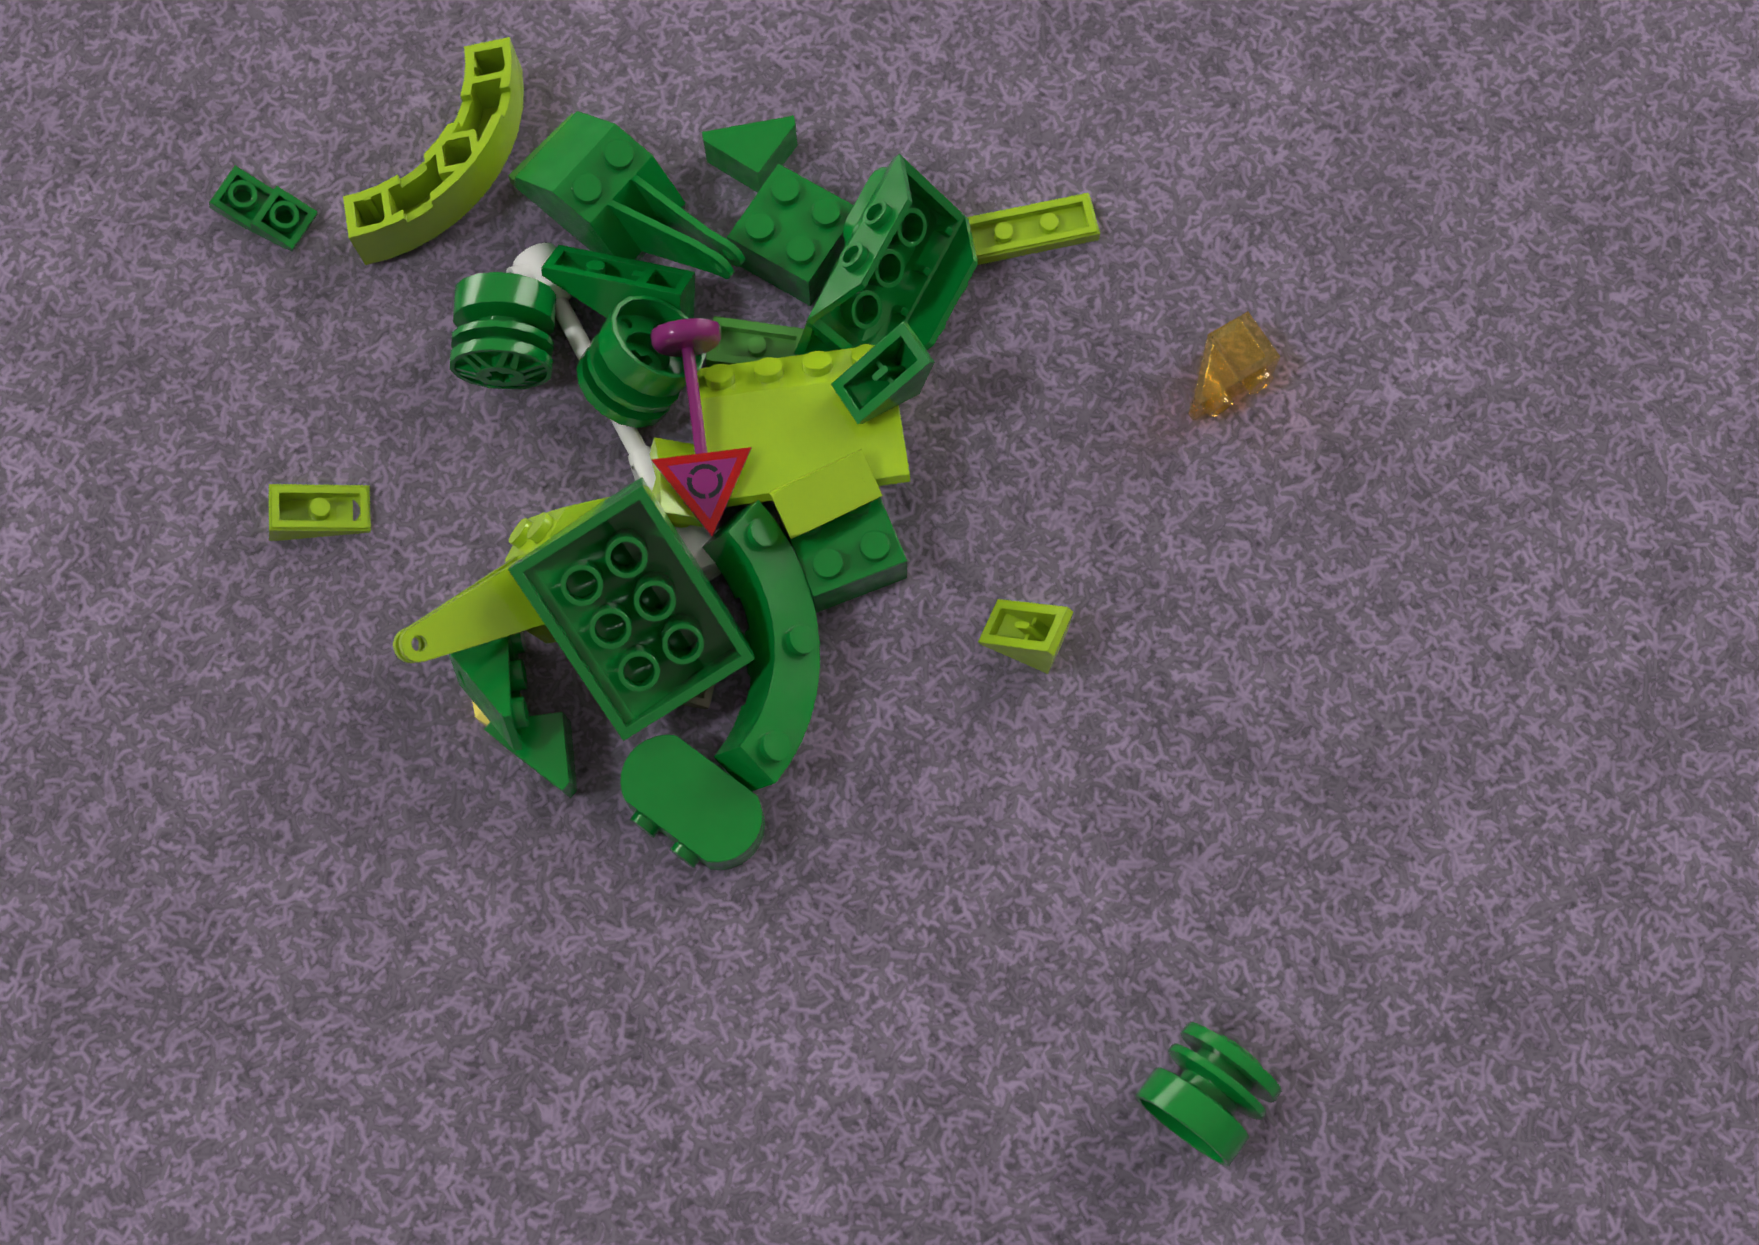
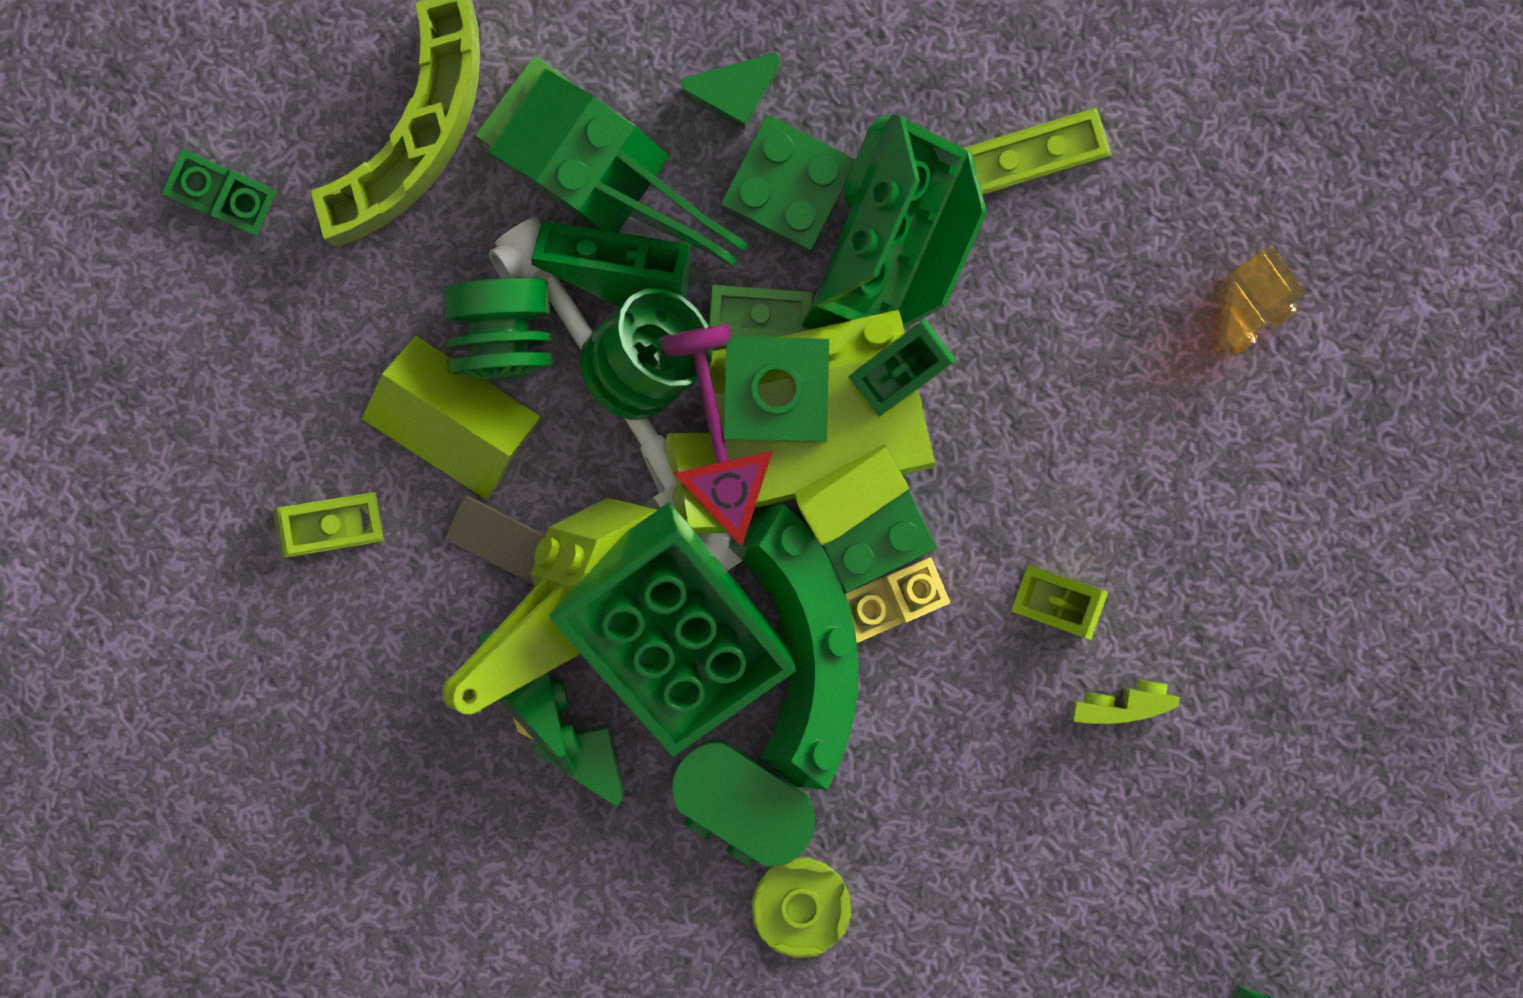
camera: 10 degrees left, 15 degrees up
(448, 422) = (448, 418): none -> lime slope
(473, 529) = (495, 537): none -> dark tan slope
(755, 928) = (802, 888): none -> lime tile
(775, 422) = (797, 421): none -> green piece
(865, 620) = (896, 599): none -> light yellow slope
(1102, 735) = (1137, 704): none -> lime slope

